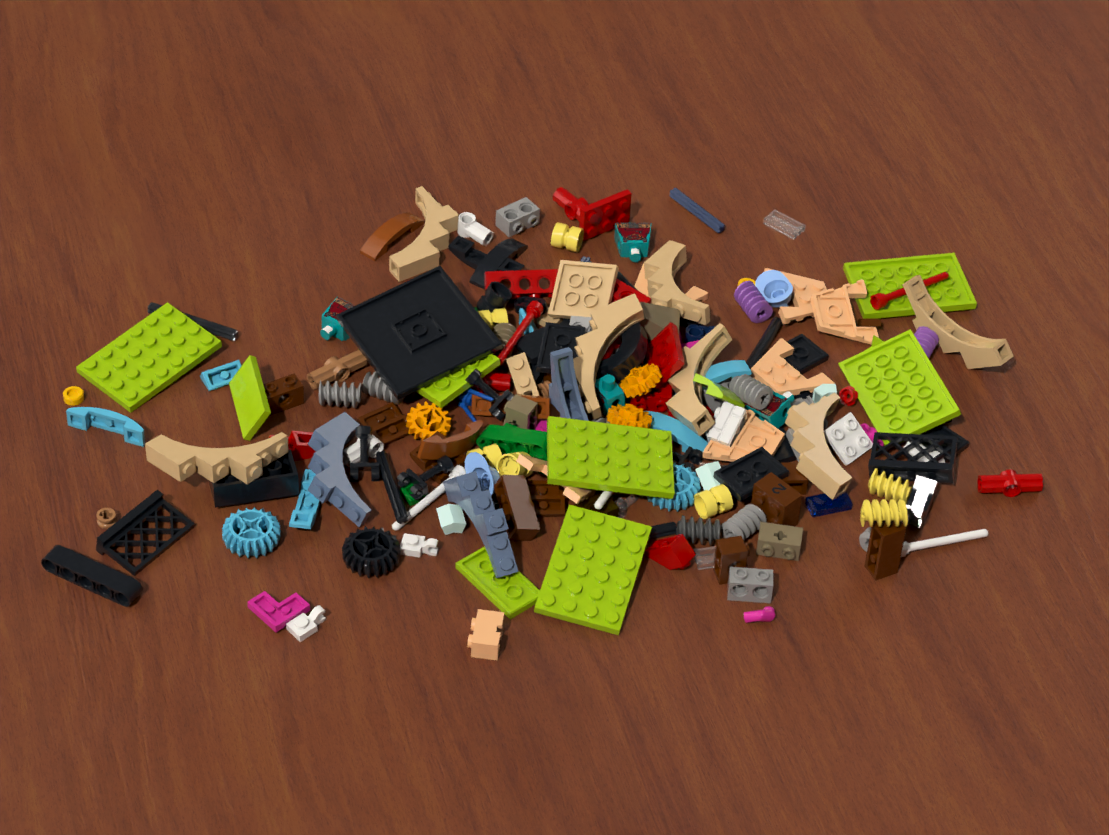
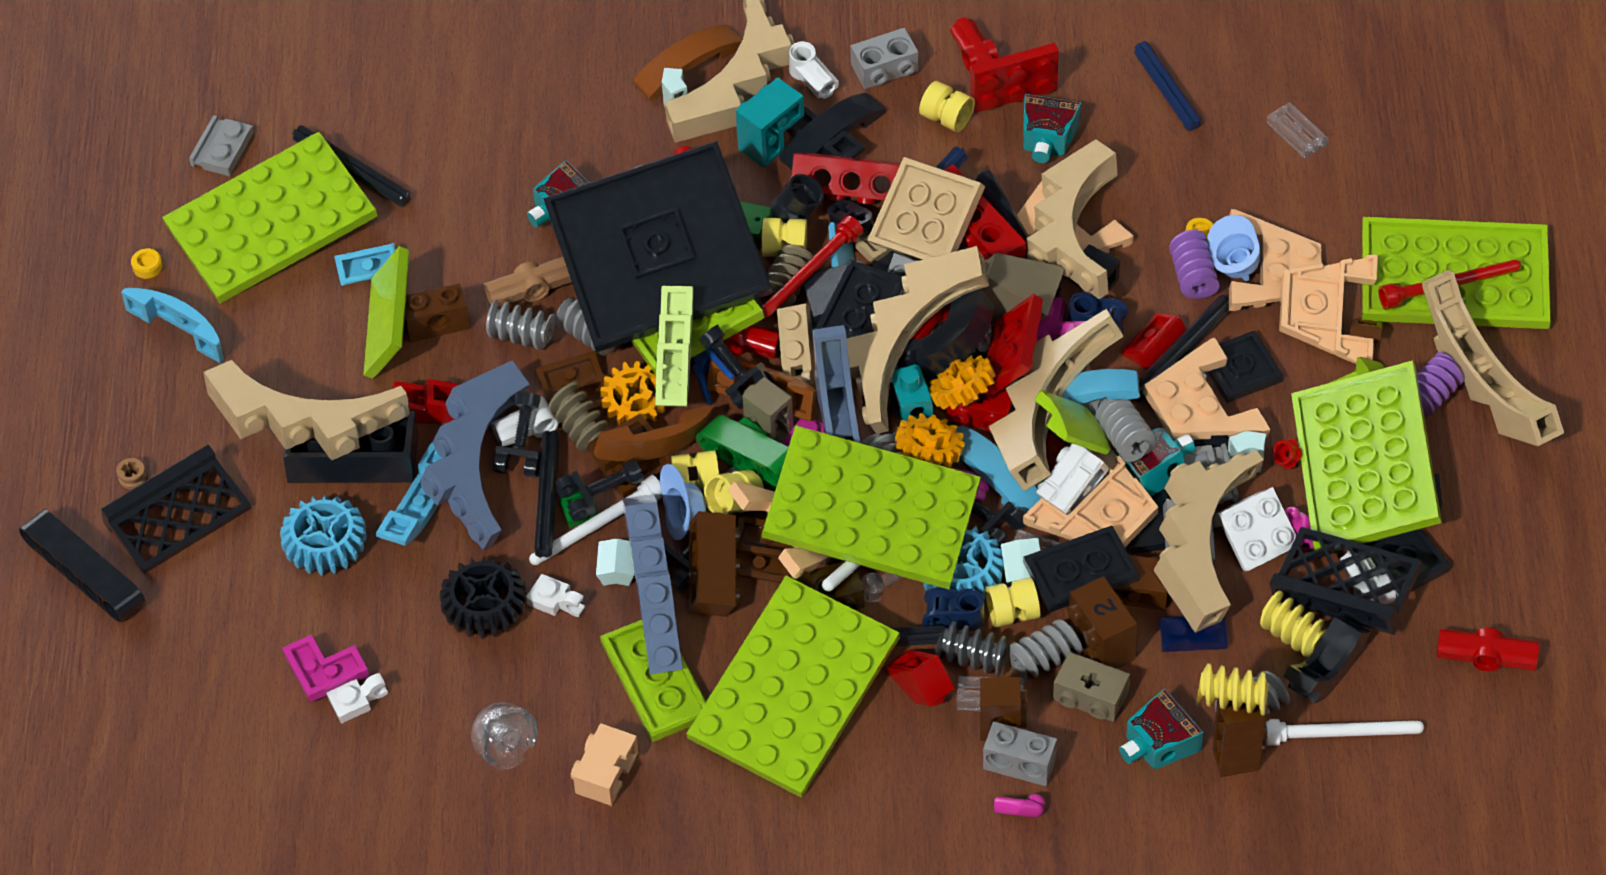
camera: 20 degrees right, 10 degrees up
(100, 322) = (221, 145): none -> light grey plate
(390, 247) = (673, 84): none -> light aqua piece
(396, 439) = (575, 416): none -> dark tan piece
(415, 626) = (503, 734): none -> clear cylinder
(451, 385) = (674, 346): none -> yellowish green slope
(459, 255) = (765, 119): none -> teal brick
(686, 507) = (953, 607): none -> dark blue piece
(742, 346) = (1154, 339): none -> red slope
(833, 559) = (1161, 733): none -> torso

